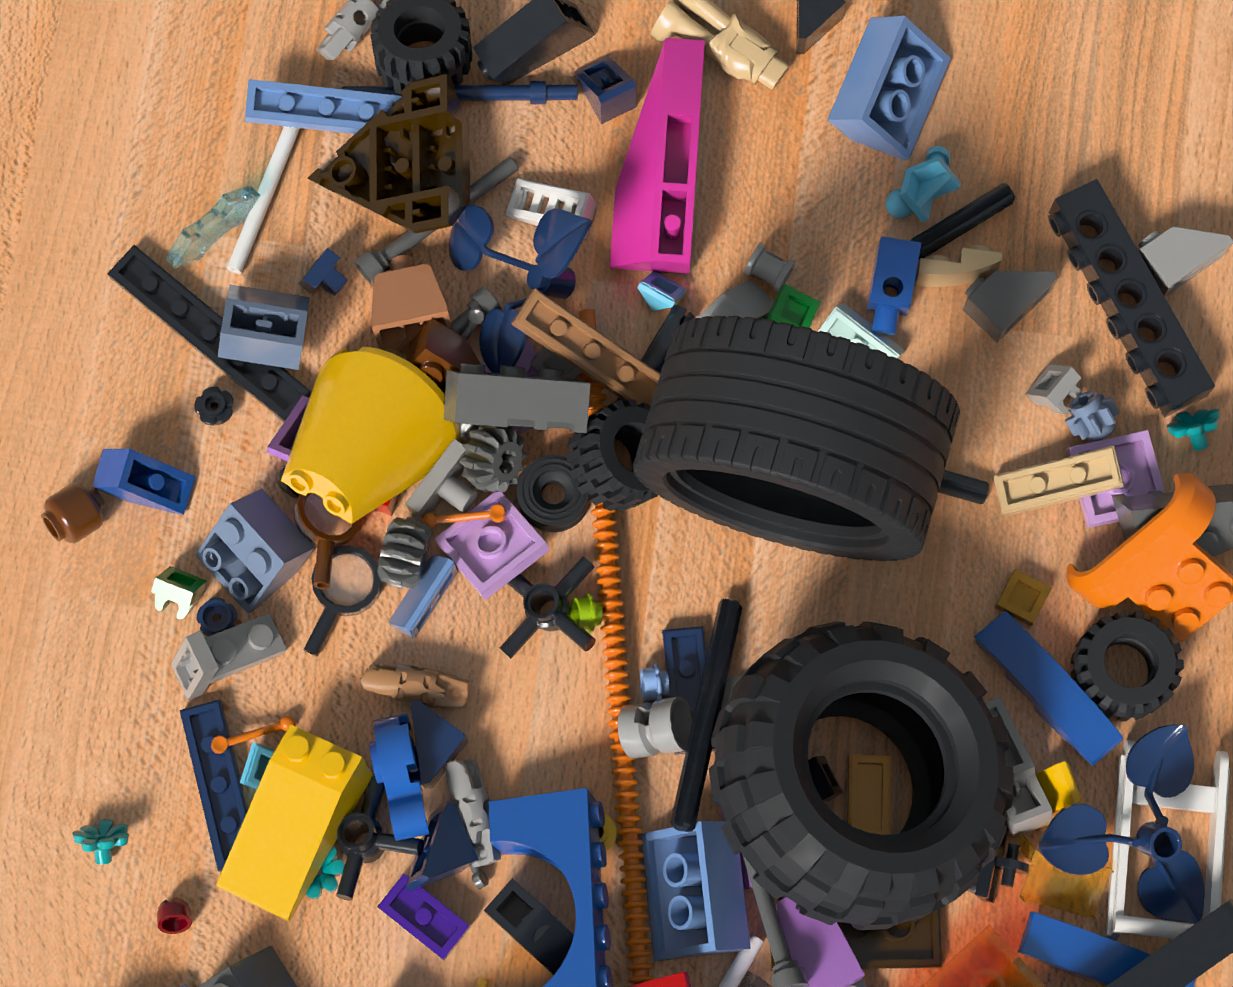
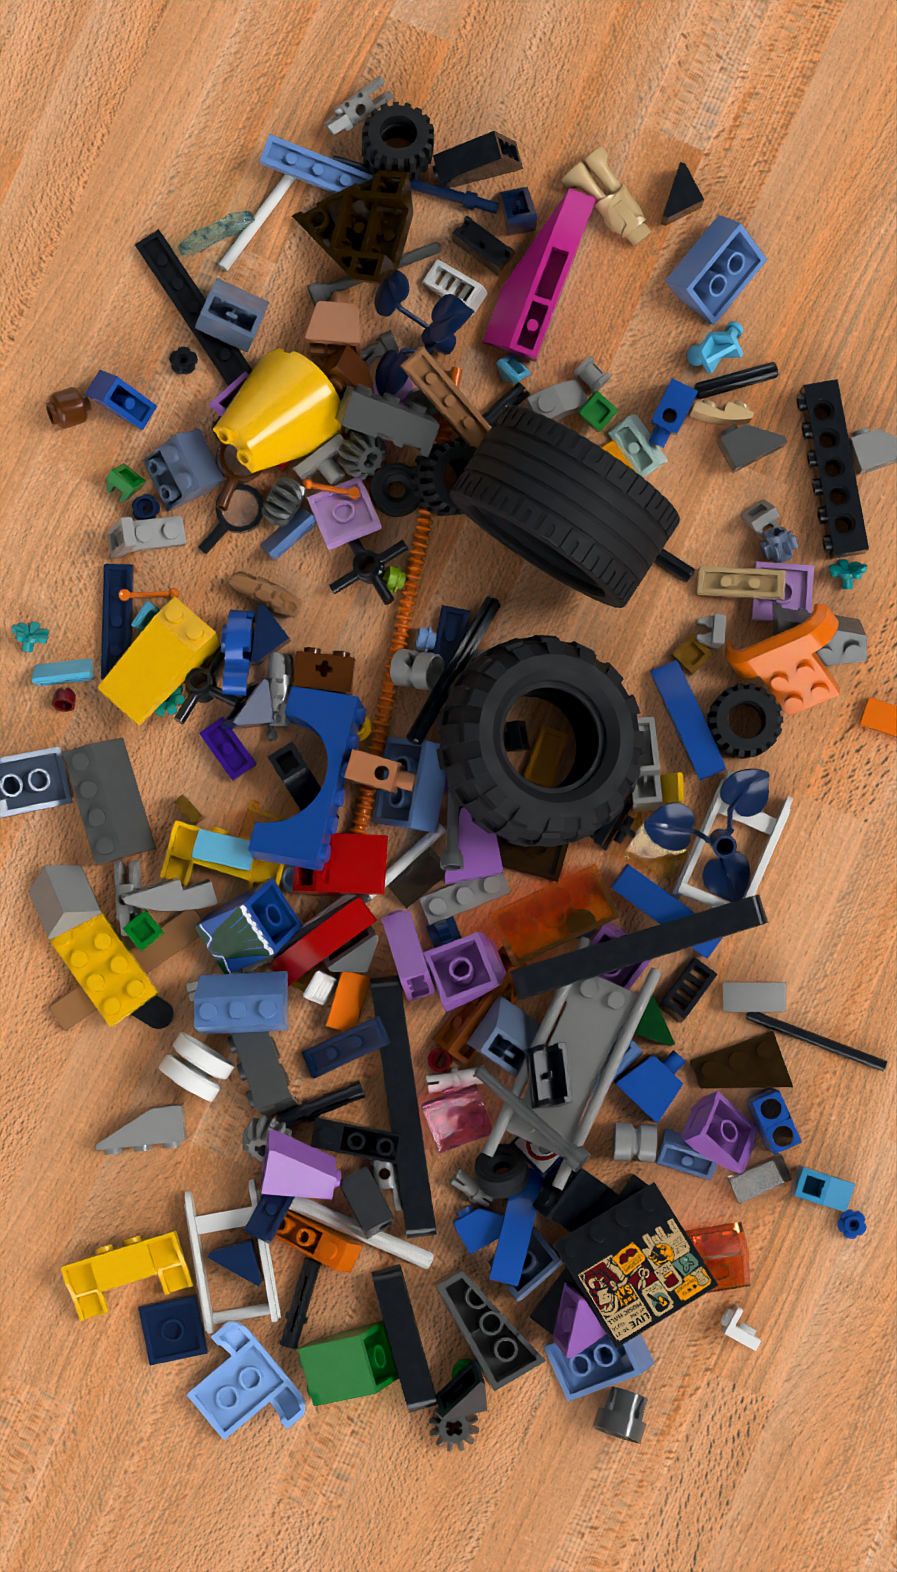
camera: 15 degrees right, 10 degrees up
(162, 878) = (63, 672): none -> medium azure slope
(324, 274) = (283, 288): dark blue tile -> none
(549, 777) = (338, 681): none -> reddish brown brick
(572, 145) = (482, 245): none -> black hinge
(629, 886) = (368, 770): none -> nougat torso
(1047, 557) = (716, 635): none -> light grey tile

